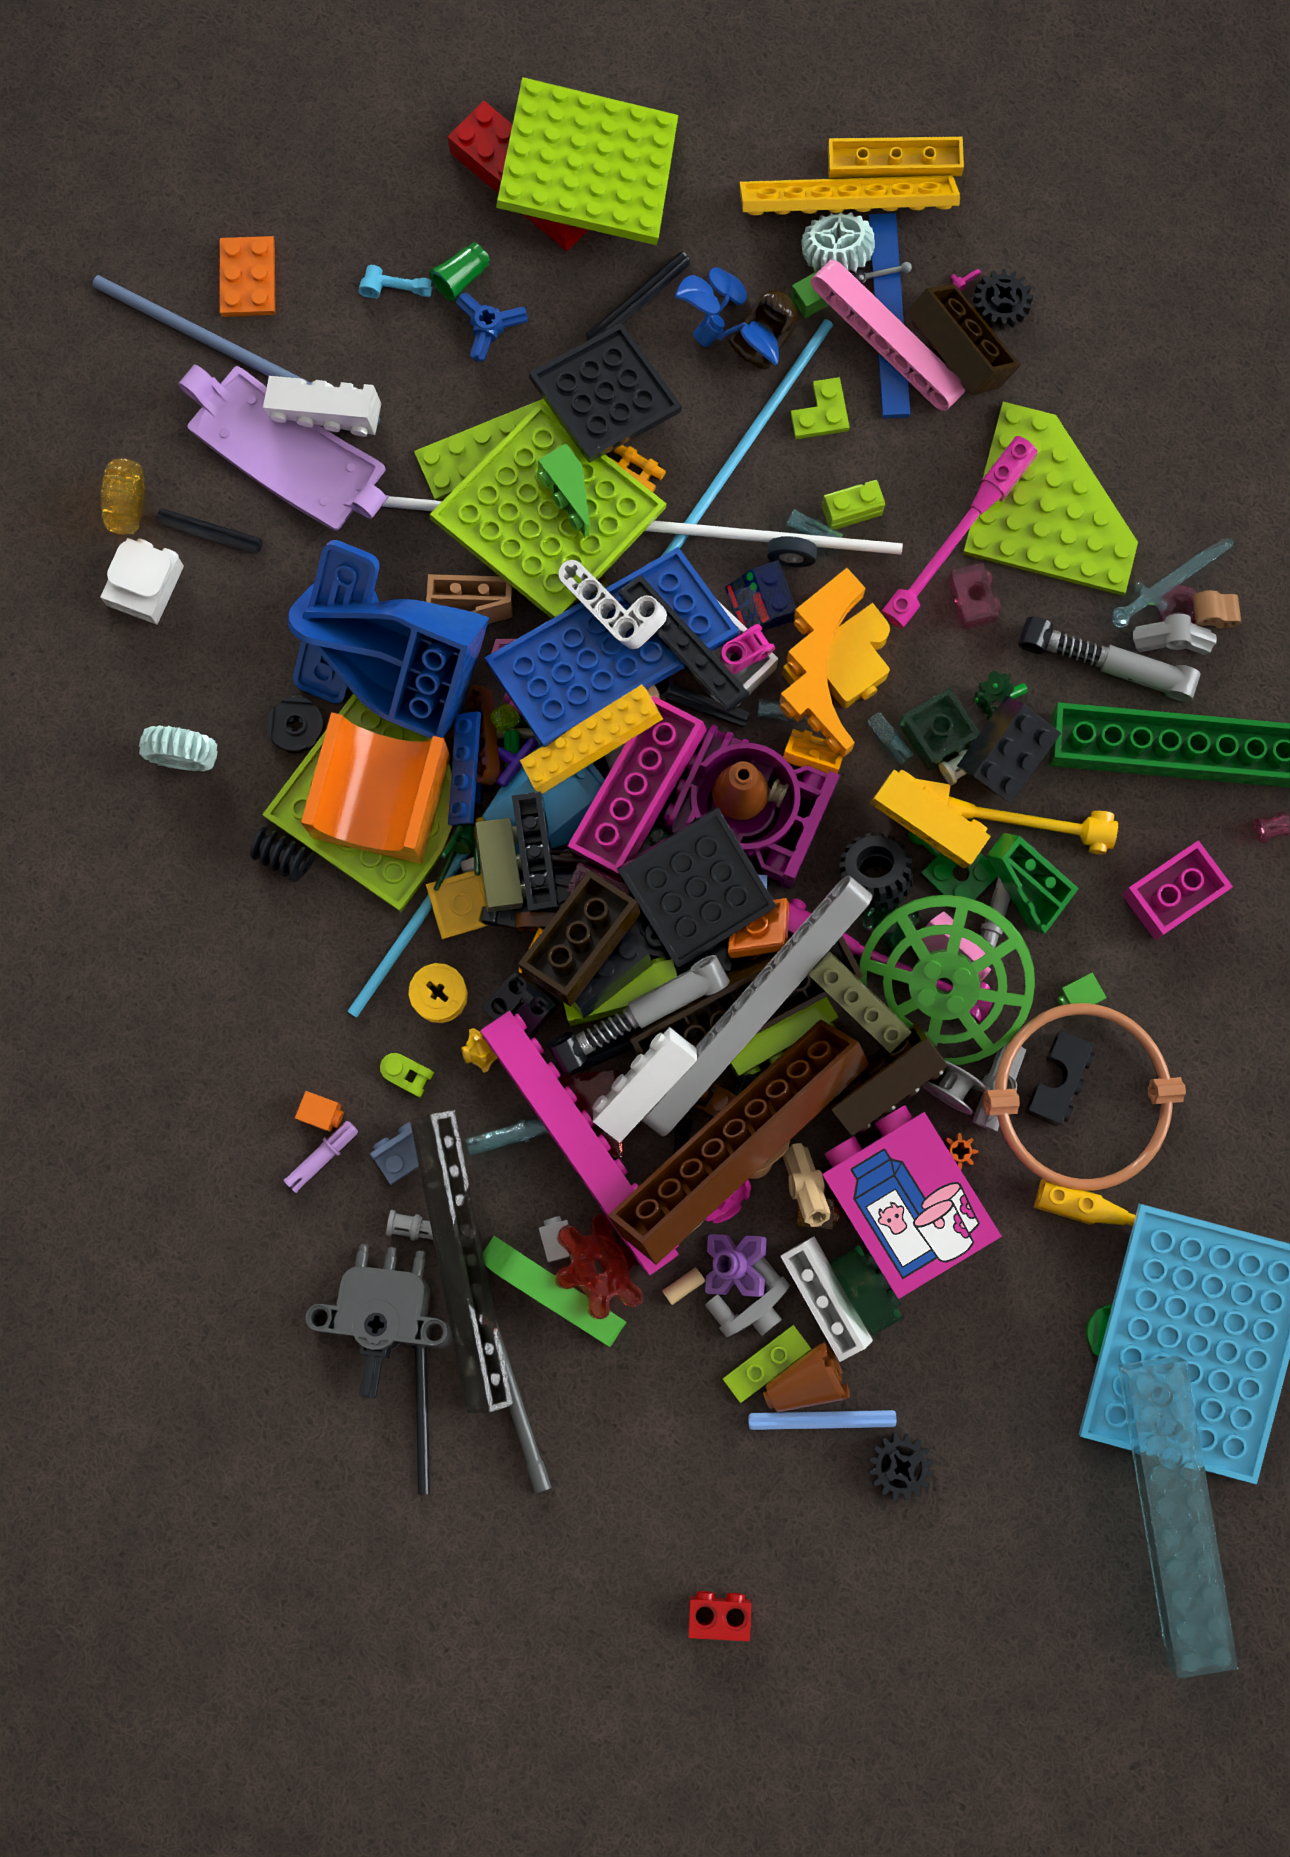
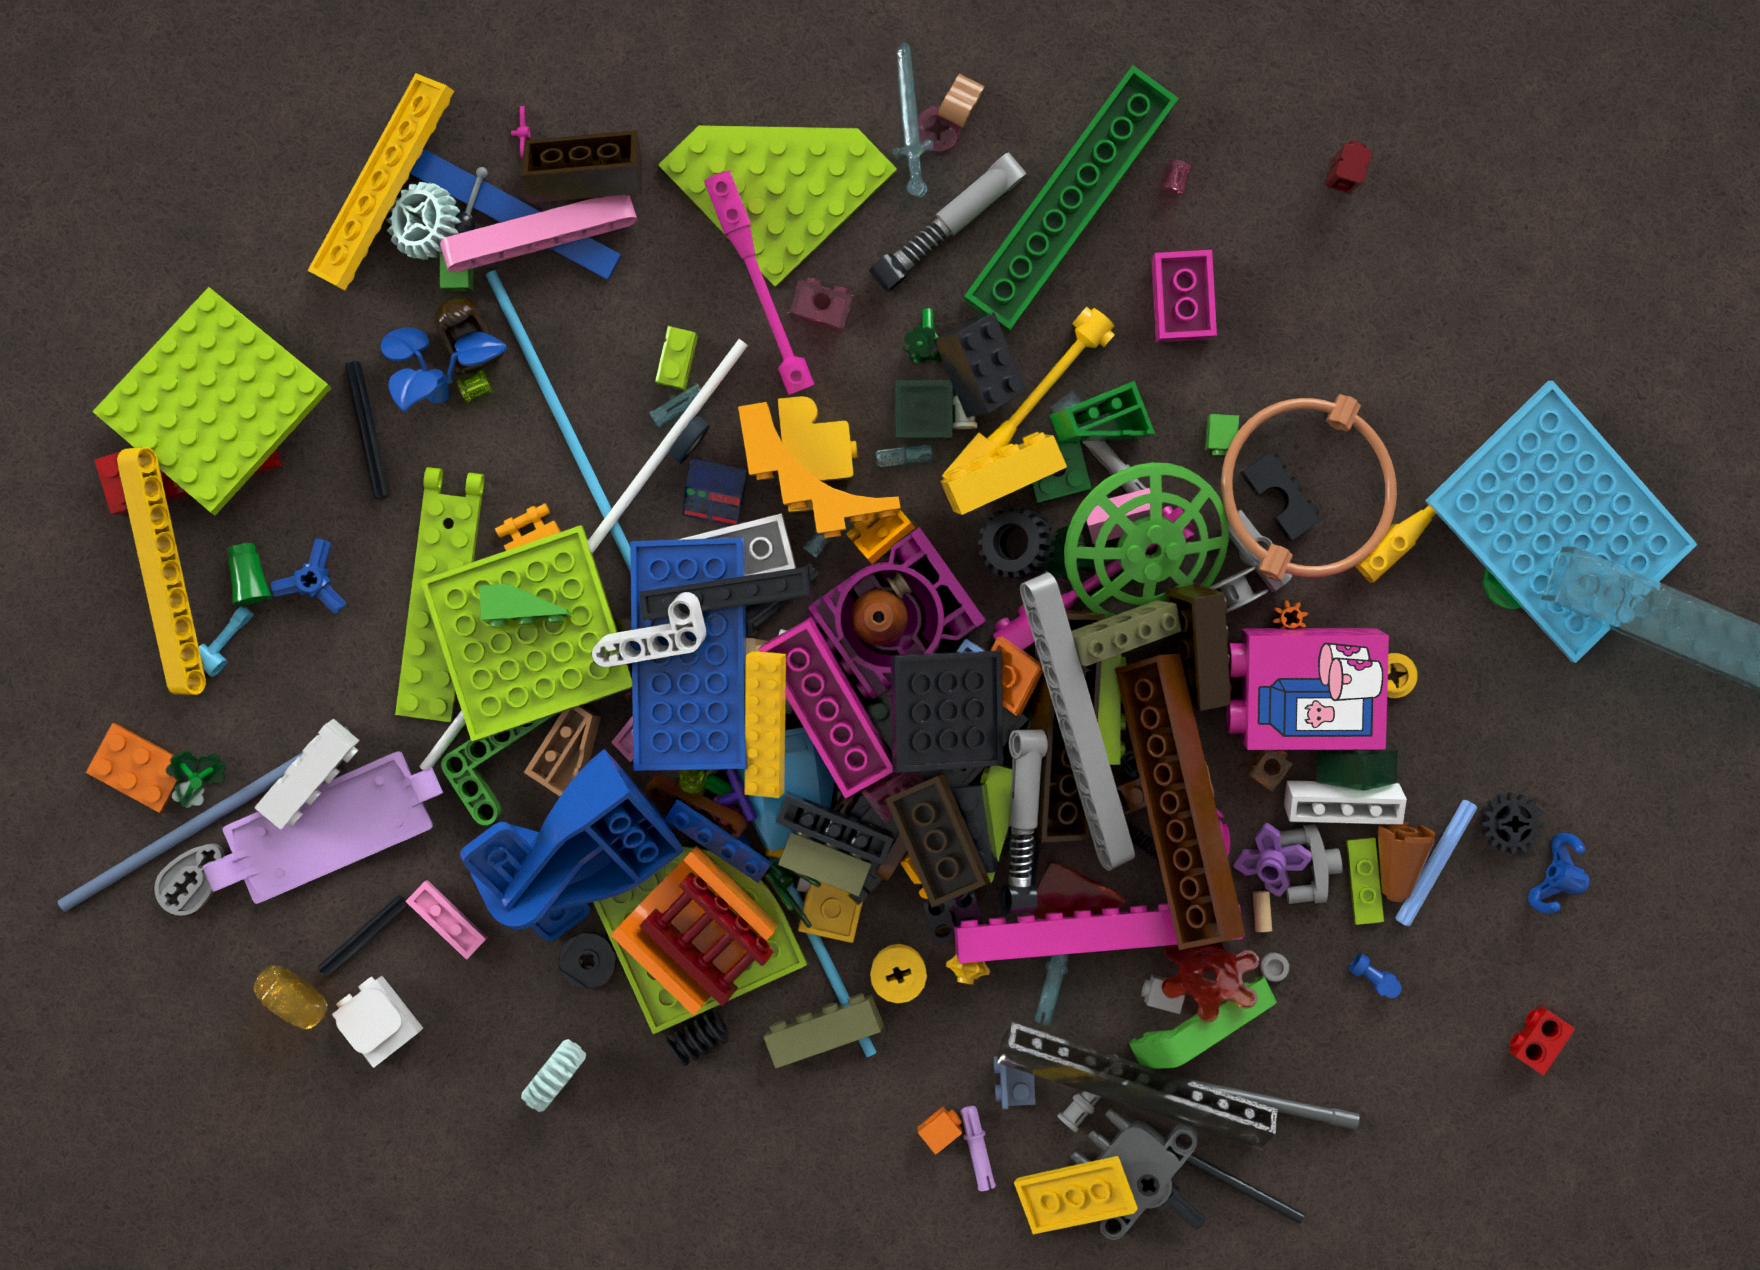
camera: 60 degrees left, 10 degrees up
(176, 353) = (176, 872): none -> light grey piece
(263, 589) = (446, 919): none -> bright pink plate
(268, 308) = (190, 790): none -> dark green plant
(329, 1265) = (1076, 1195): none -> yellow plate
(350, 957) = (823, 1030): none -> olive brick
(351, 789) = (688, 956): none -> dark red fence
(396, 1069) = (940, 1044): lime plate -> none
(411, 533) = (470, 772): none -> bright green beam
(437, 196) = (161, 570): none -> yellow beam
(605, 392) = (445, 518): black plate -> none
(639, 1328) = (1274, 967): none -> light grey tile
(644, 1084) = (1084, 851): white brick -> none
(685, 1437) = (1383, 982): none -> blue leg
(727, 360) = (474, 386): none -> clear neon green bush
(749, 646) = (759, 537): dark pink piece -> none
(806, 1185) = (1245, 764): tan piece -> none
(827, 416) = (579, 329): lime plate -> none
(881, 1542) = (1560, 875): none -> blue piece
(895, 157) = (368, 114): yellow piece -> none
(965, 1292) = (1405, 683): none -> yellow gear
(1003, 300) = (573, 102): black gear -> none
(1175, 634) = (962, 152): light grey piece -> none

